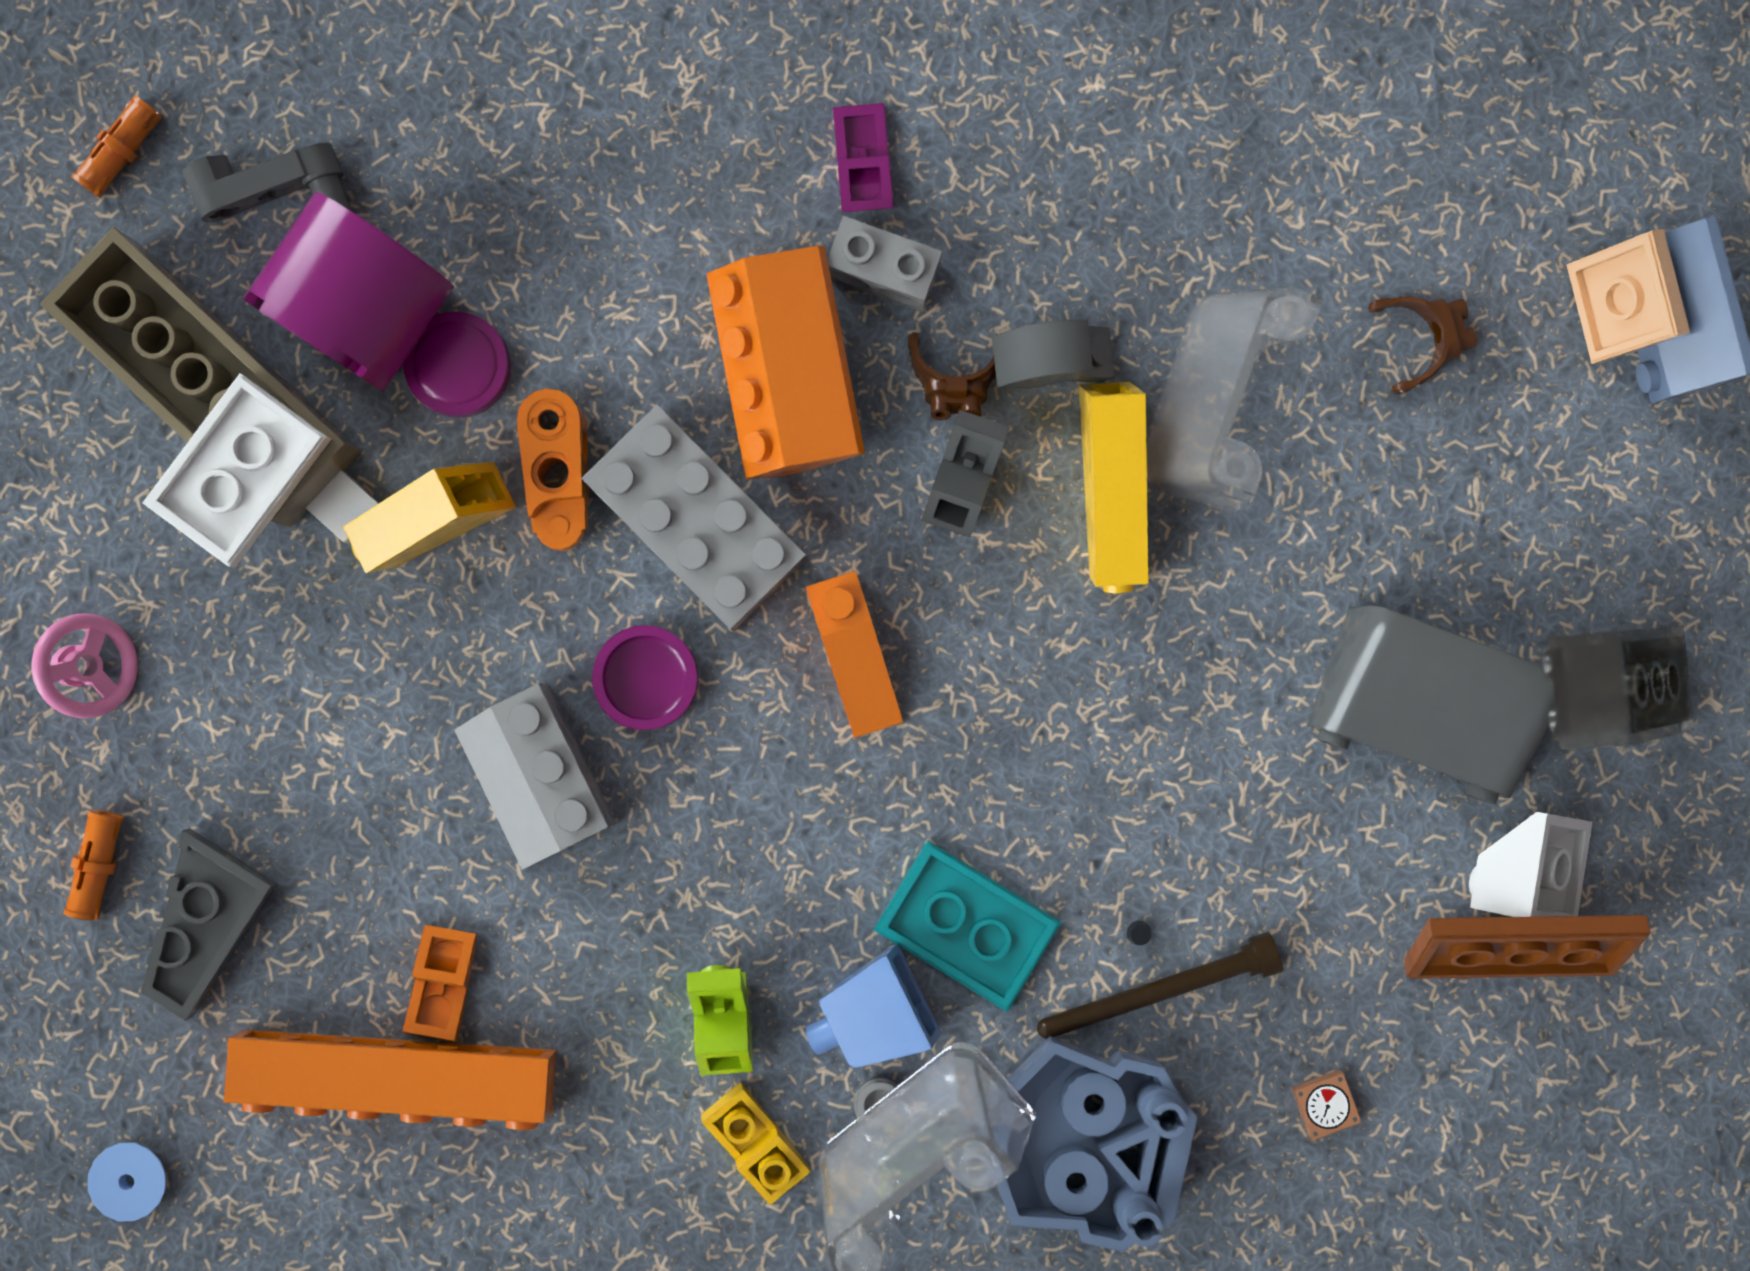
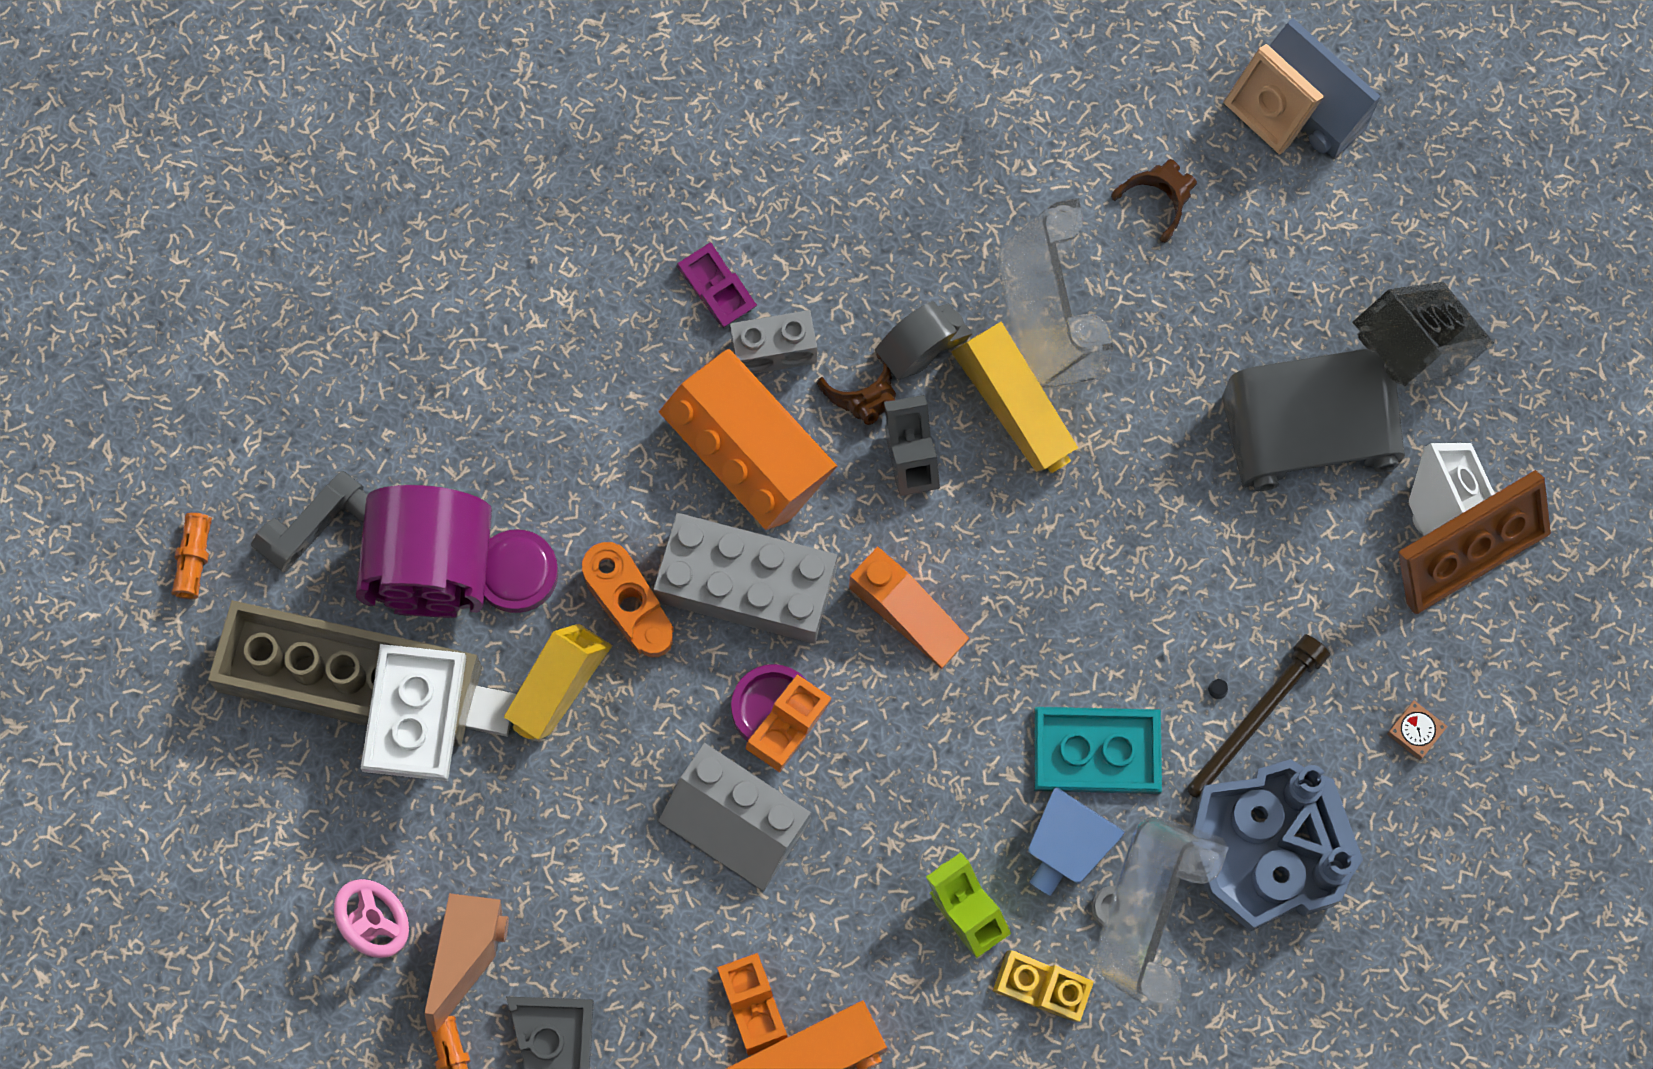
camera: 30 degrees left, 15 degrees down
(164, 755) = (464, 952): none -> nougat slope
(645, 710) = (788, 723): none -> orange slope

